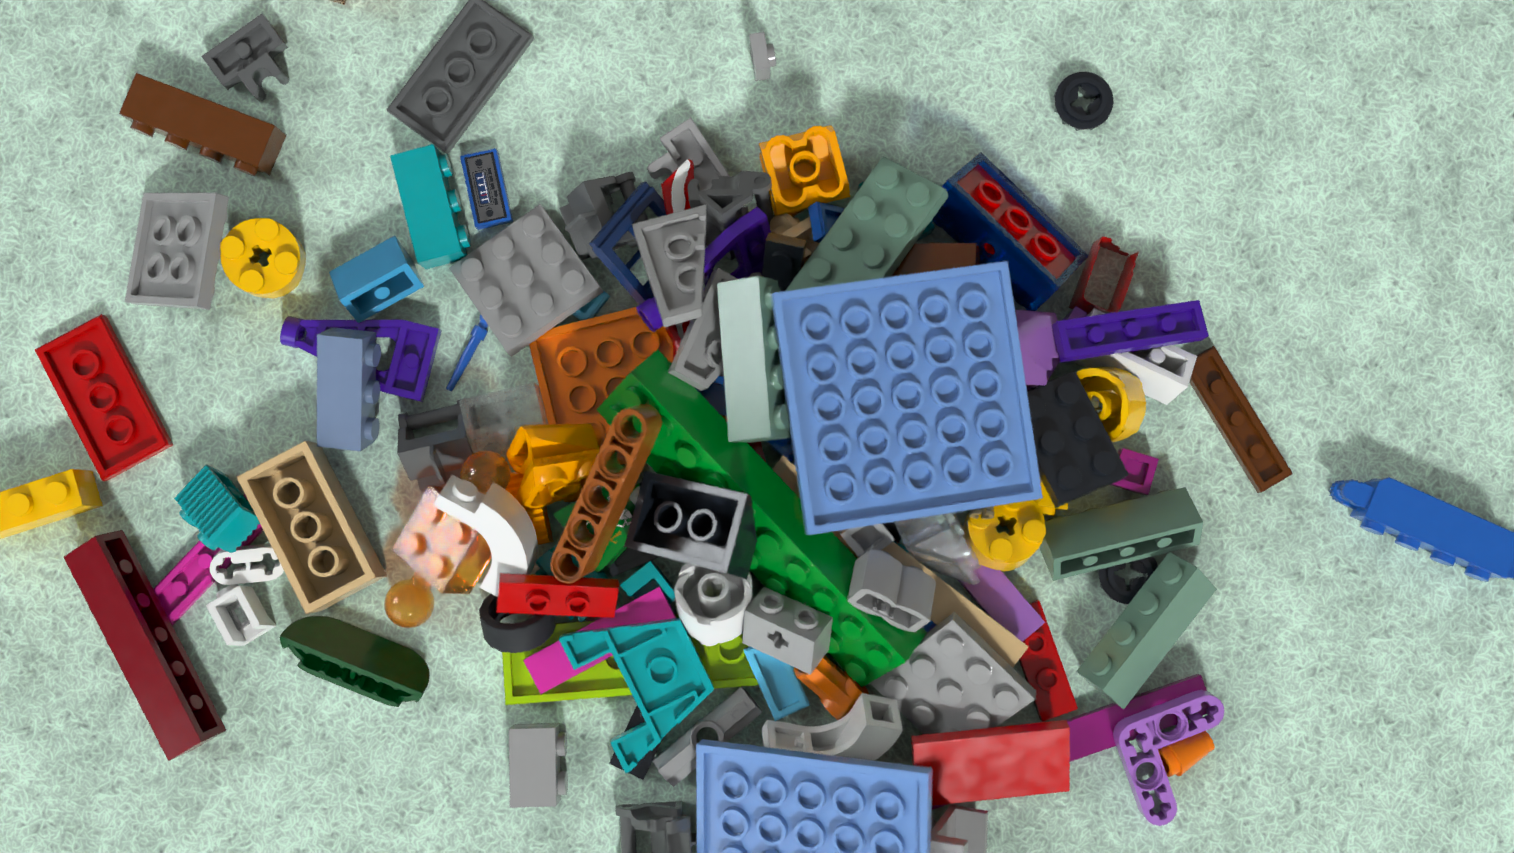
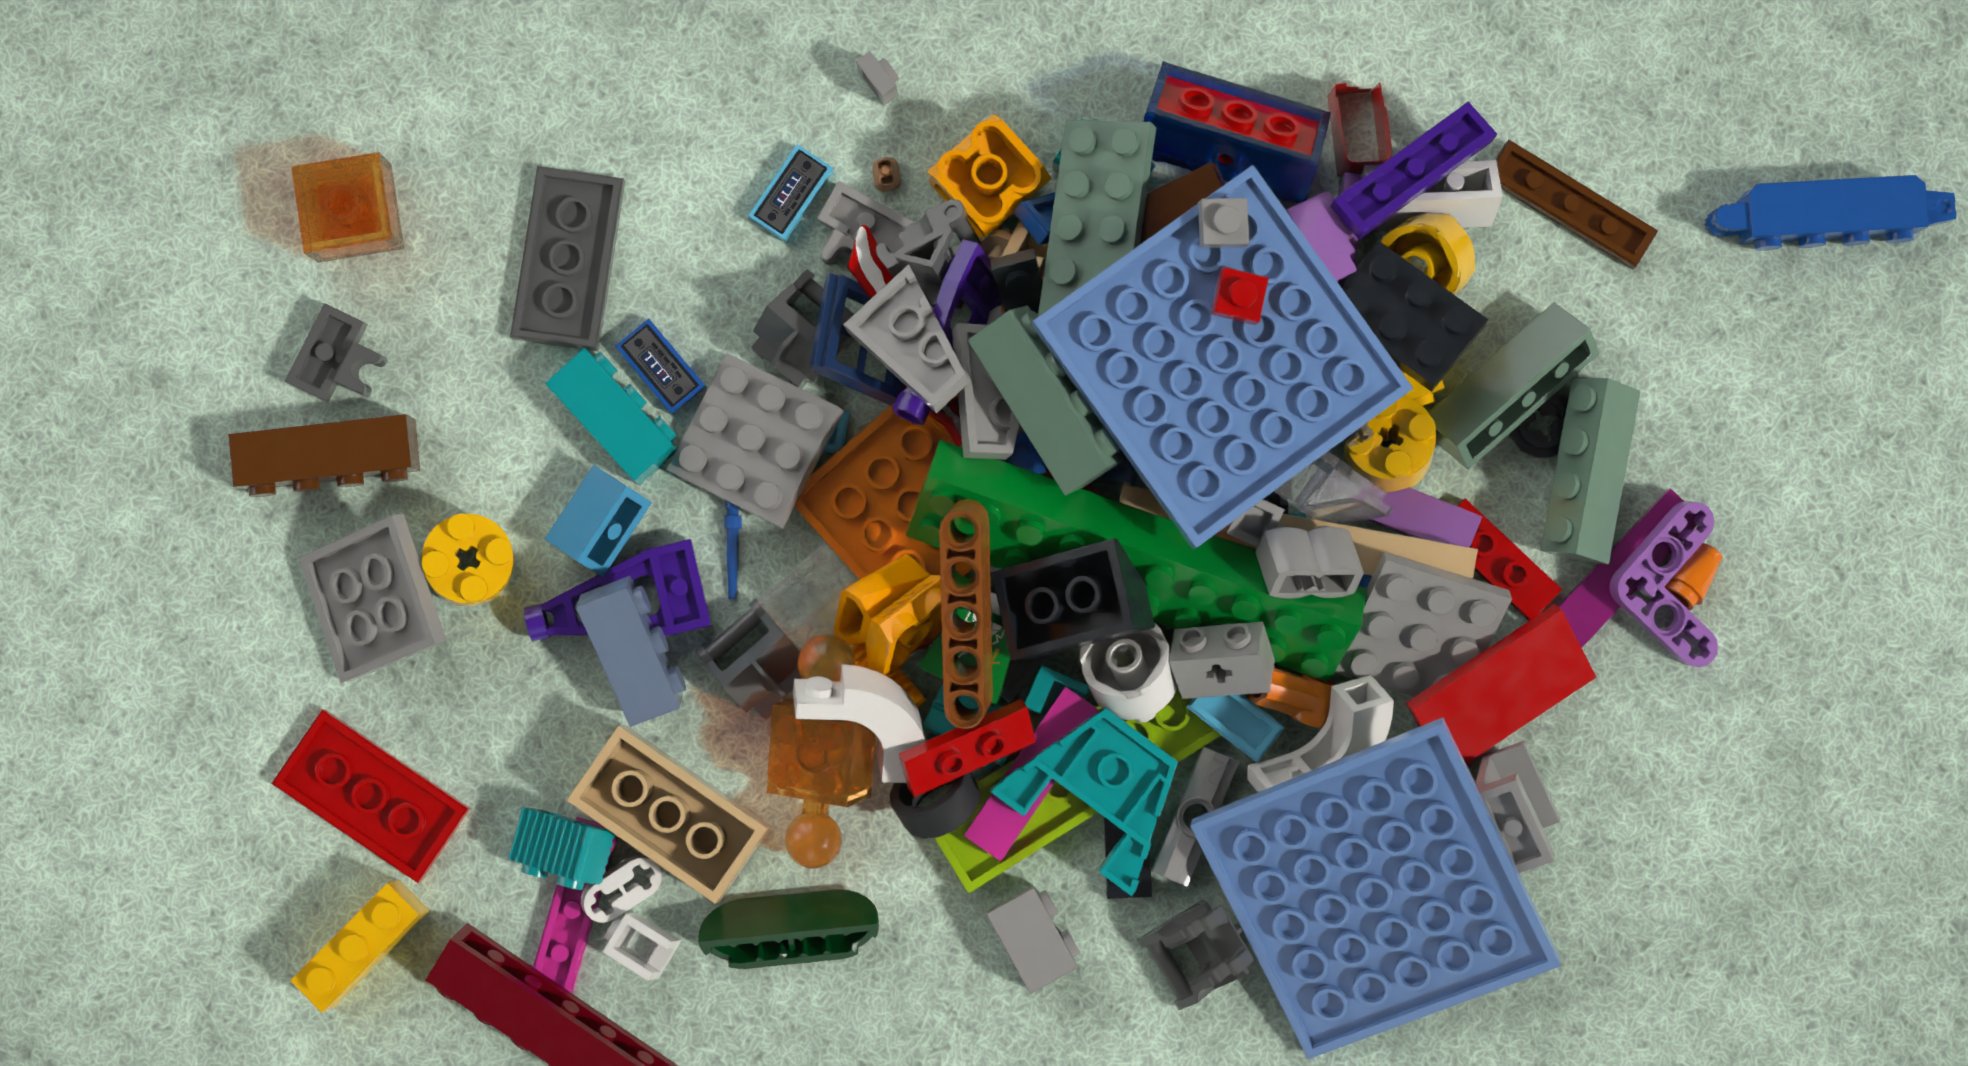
camera: 25 degrees left, 0 degrees up
(651, 110) = (791, 193): none -> tile
(730, 132) = (886, 174): none -> medium nougat rock
(944, 357) = (1239, 296): none -> red plate
(960, 293) = (1223, 223): none -> light grey plate
(1140, 470) = (1500, 310): magenta plate -> none

